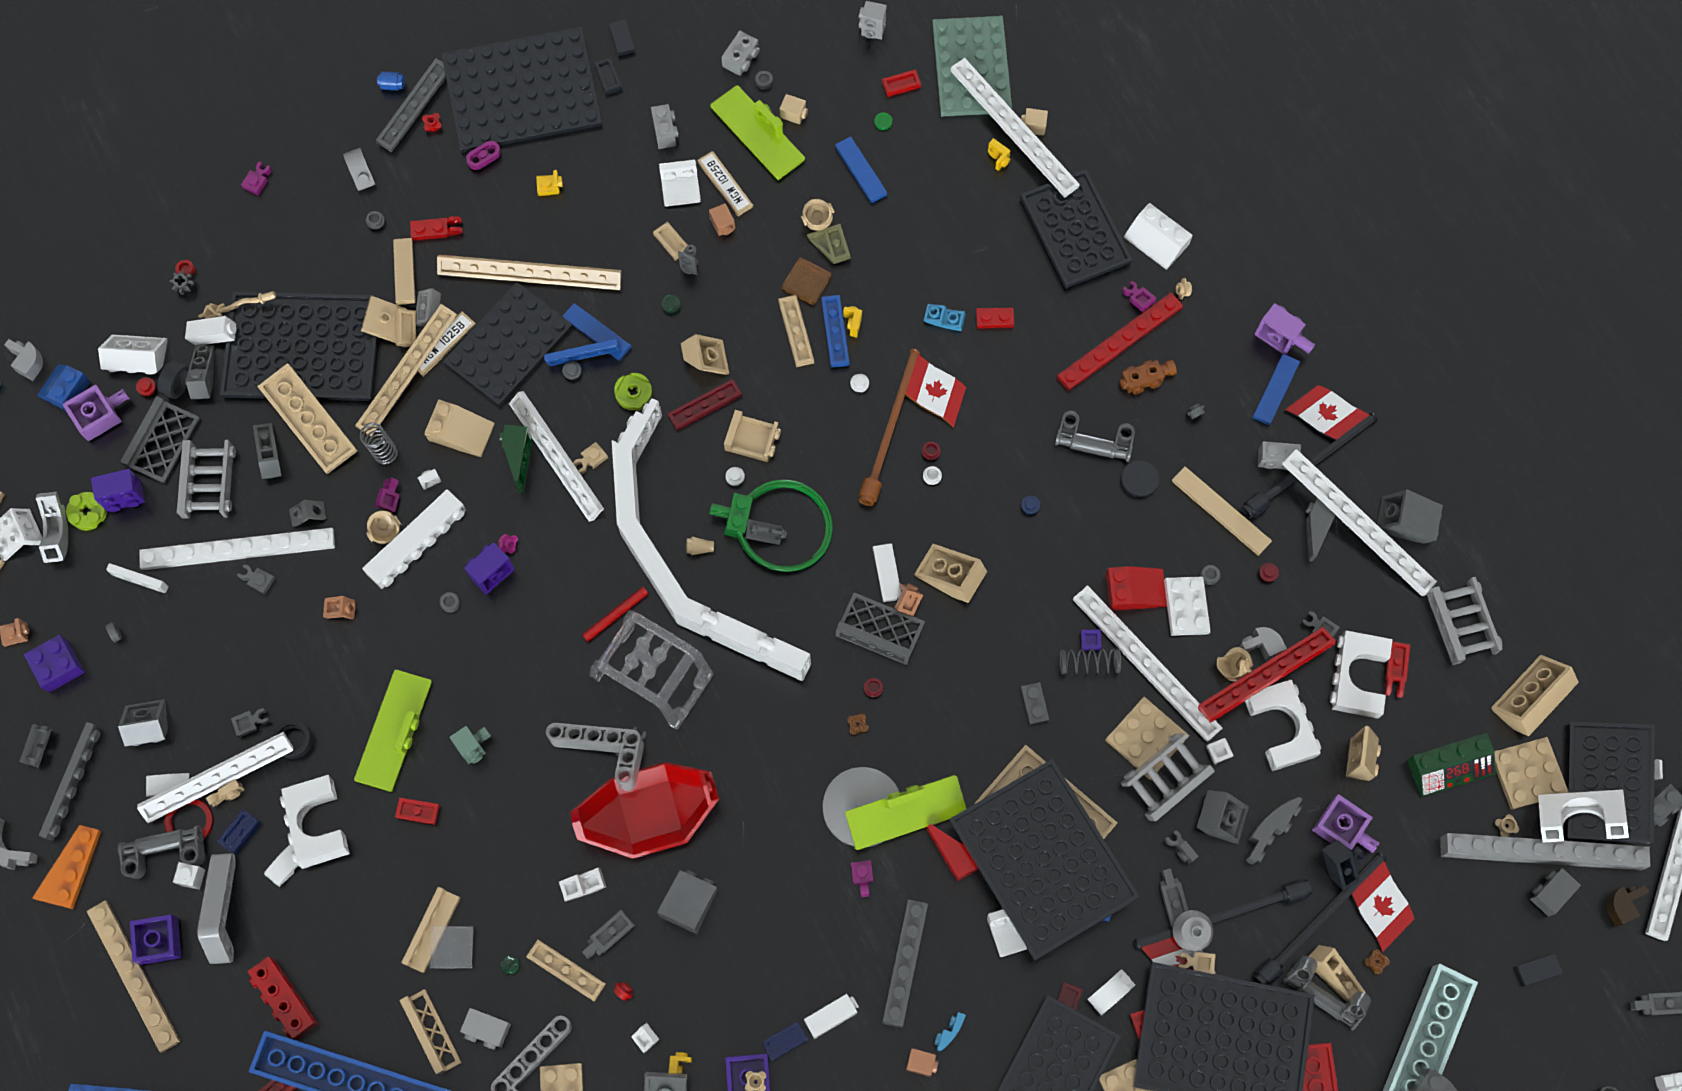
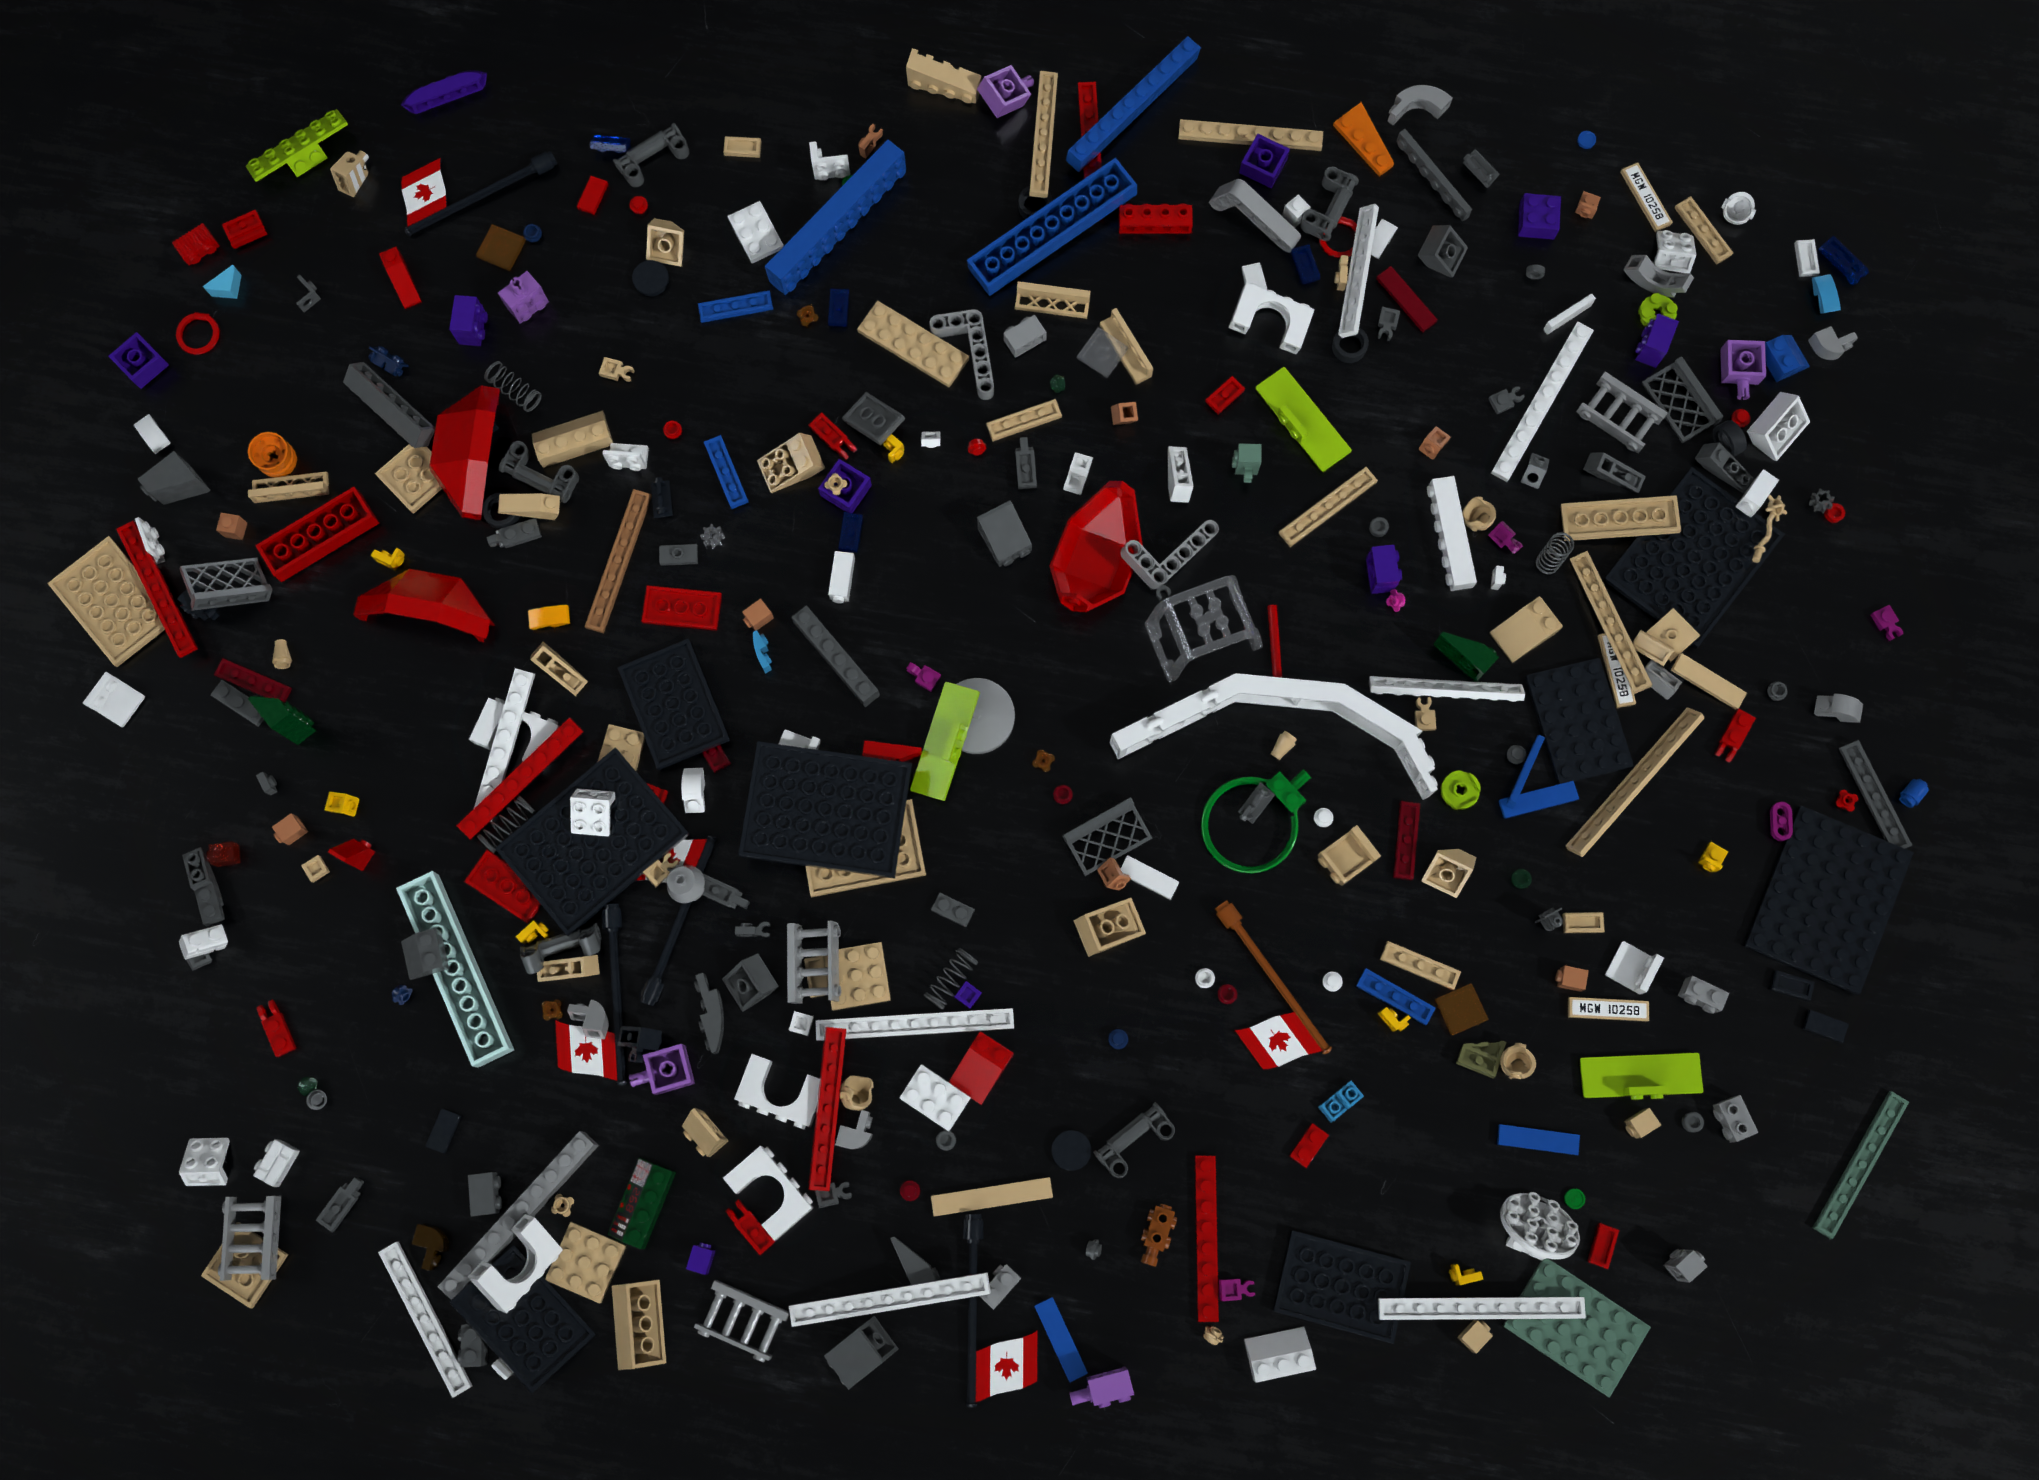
camera: 130 degrees right, 5 degrees up
(213, 723) = (1406, 299): none -> dark red tile
(461, 655) = (1328, 506): none -> tan tile
(498, 882) = (1124, 413): none -> nougat brick
(521, 795) = (1179, 475): none -> white slope
(926, 124) = (1539, 1227): none -> white bracket
(1165, 773) = (816, 981): none -> tan tile
(1202, 1058) = (591, 812): none -> white bracket
(1337, 1031) = (530, 932): none -> yellow bracket
(1354, 915) = (594, 1018): none -> light grey brick
(1451, 686) = (701, 1258): none -> dark purple brick

